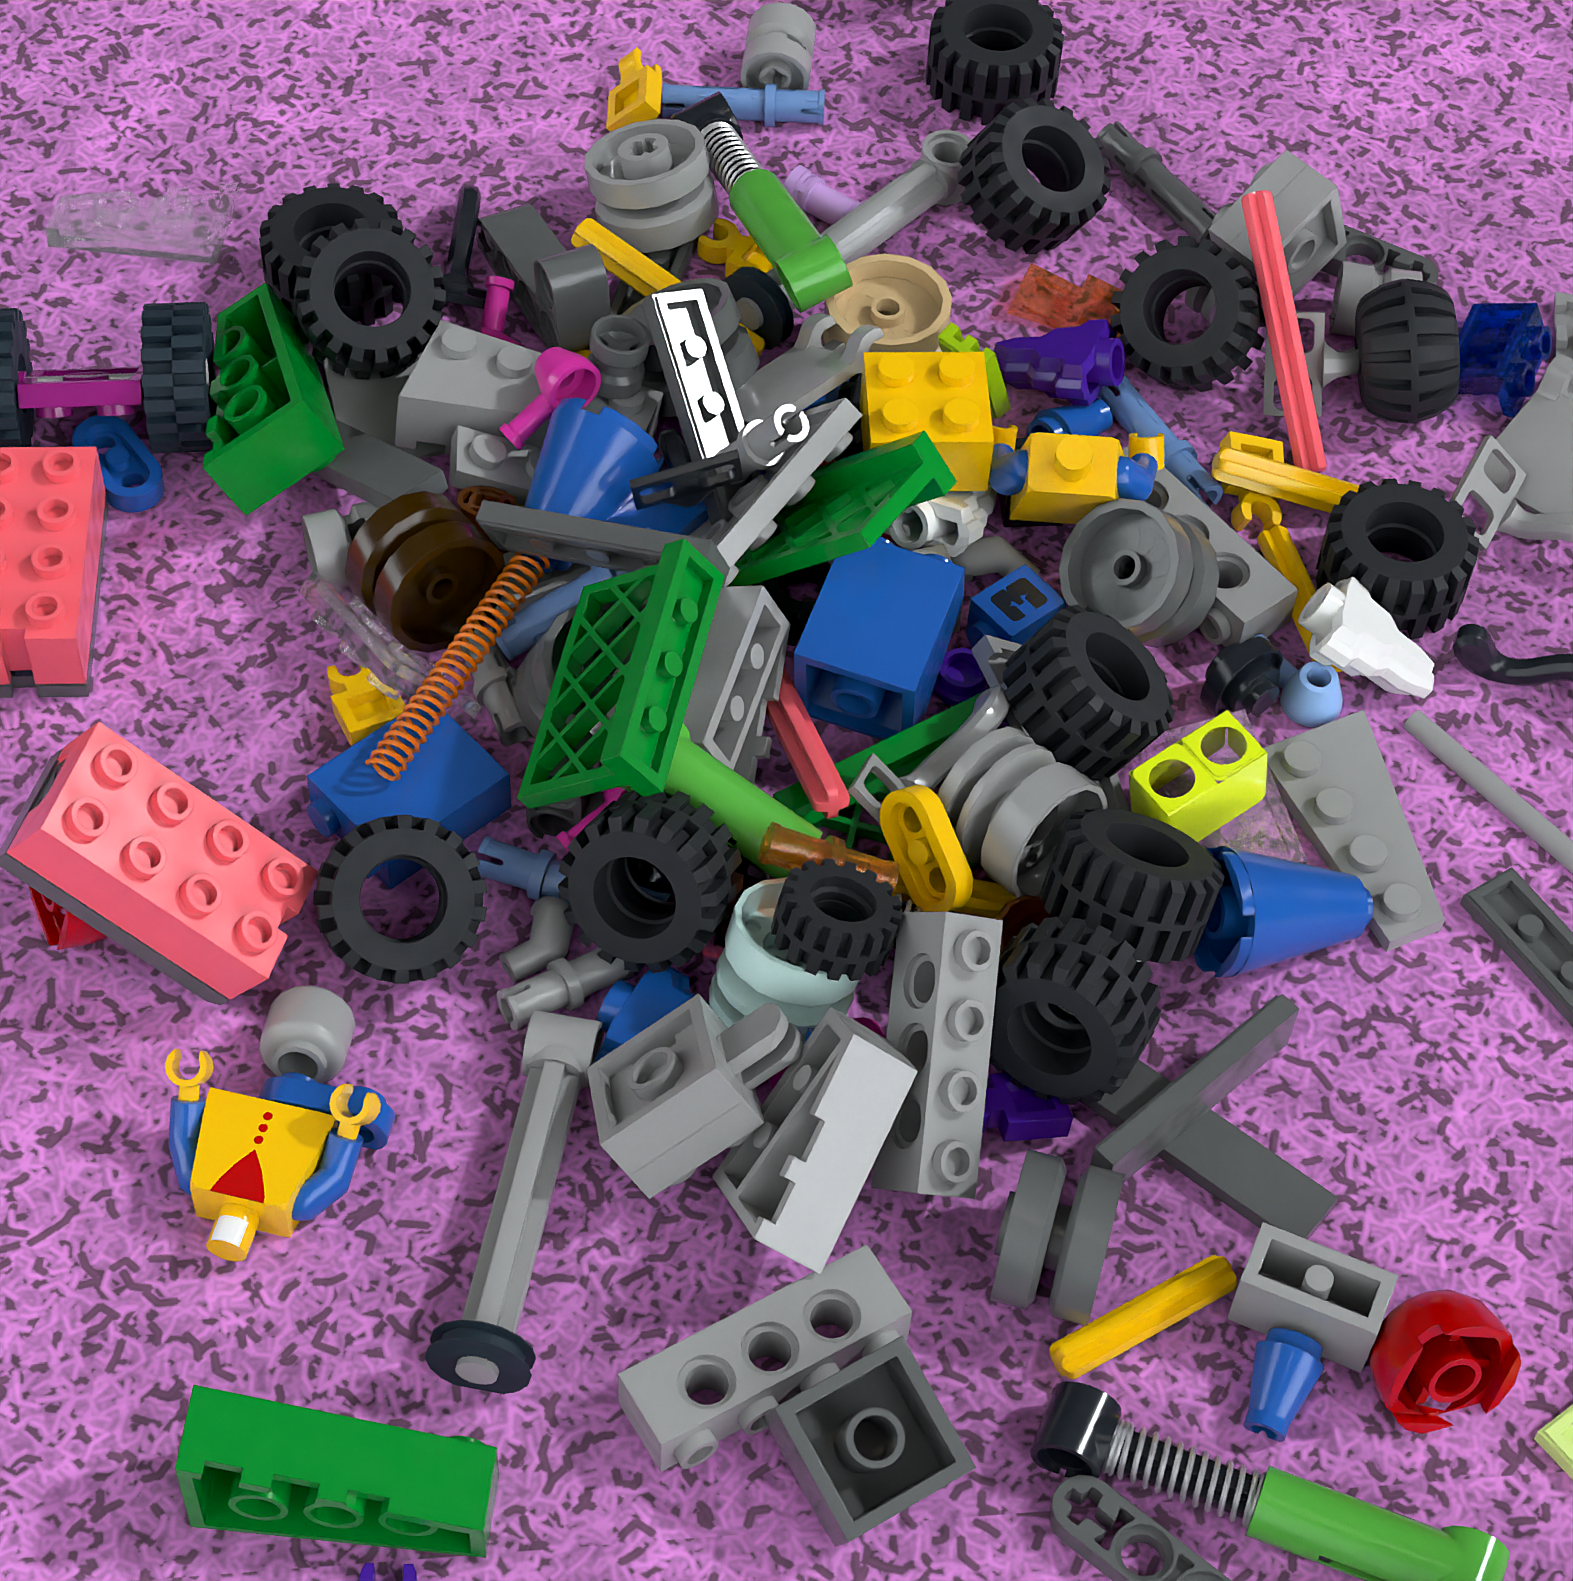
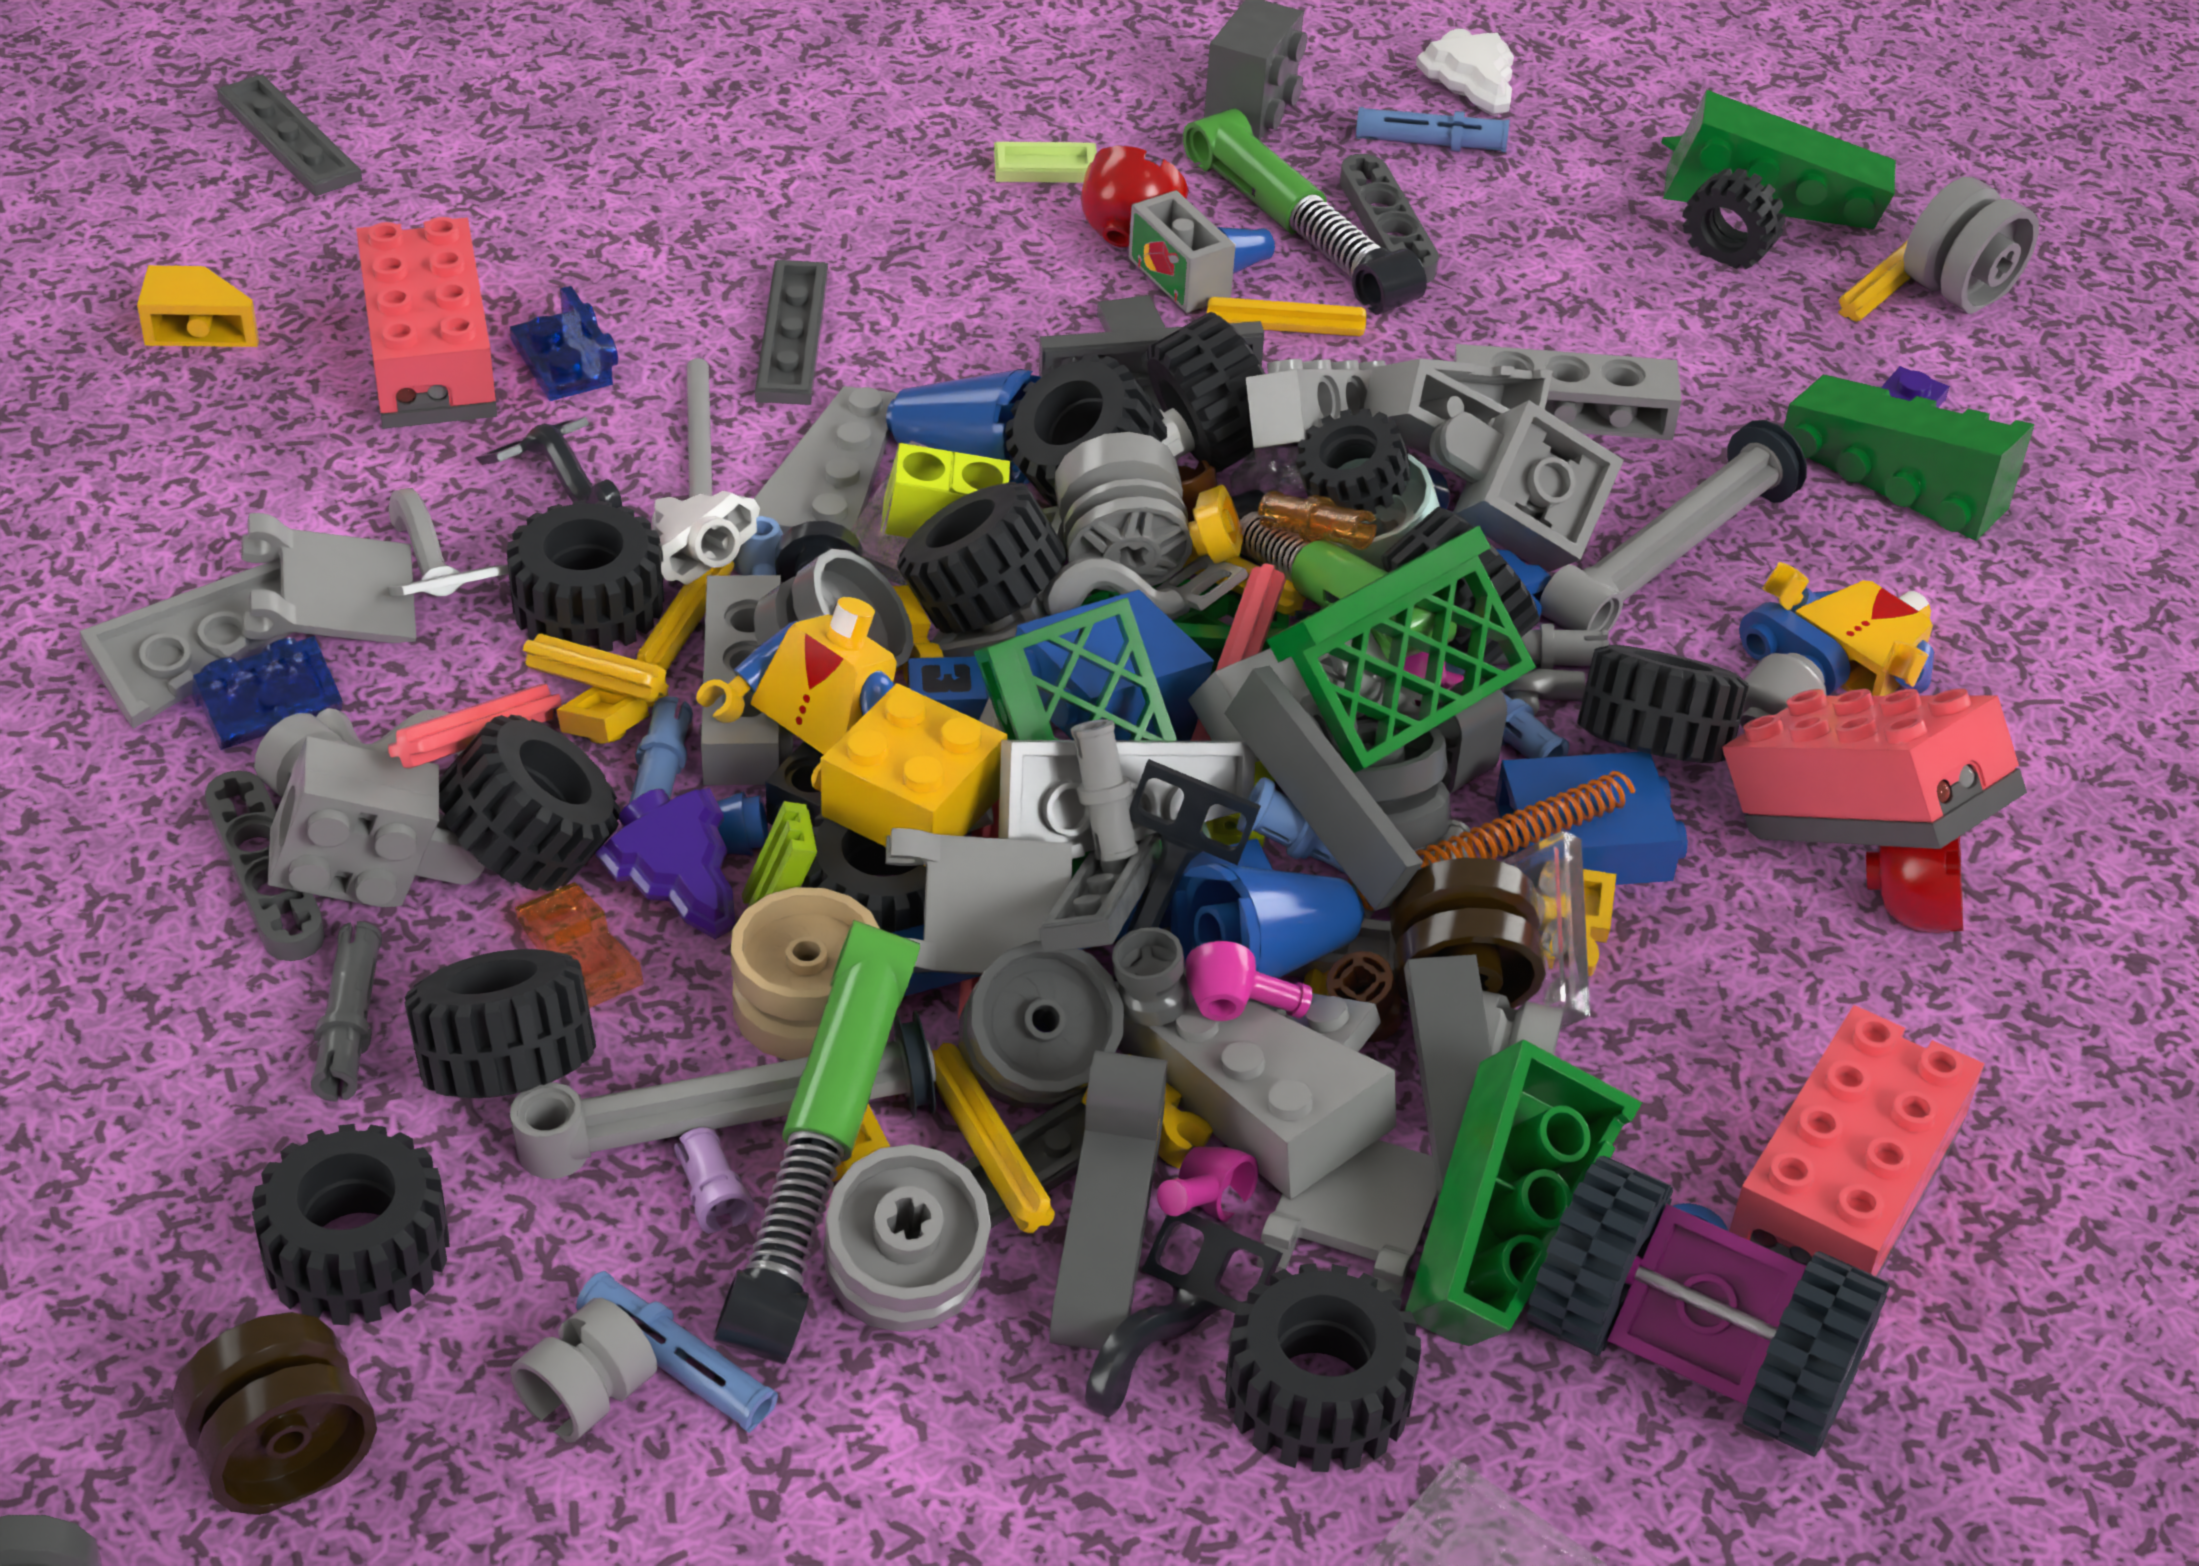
camera: 145 degrees left, 10 degrees down
(375, 253) = (1350, 1204): black tyre -> none
(637, 95) = (800, 1418): yellow plate -> none
(868, 1442) = (1538, 305): dark grey brick -> none
(1055, 1236) = (1326, 314): dark grey wheel -> none
(1407, 351) = (369, 679): black wheel -> none

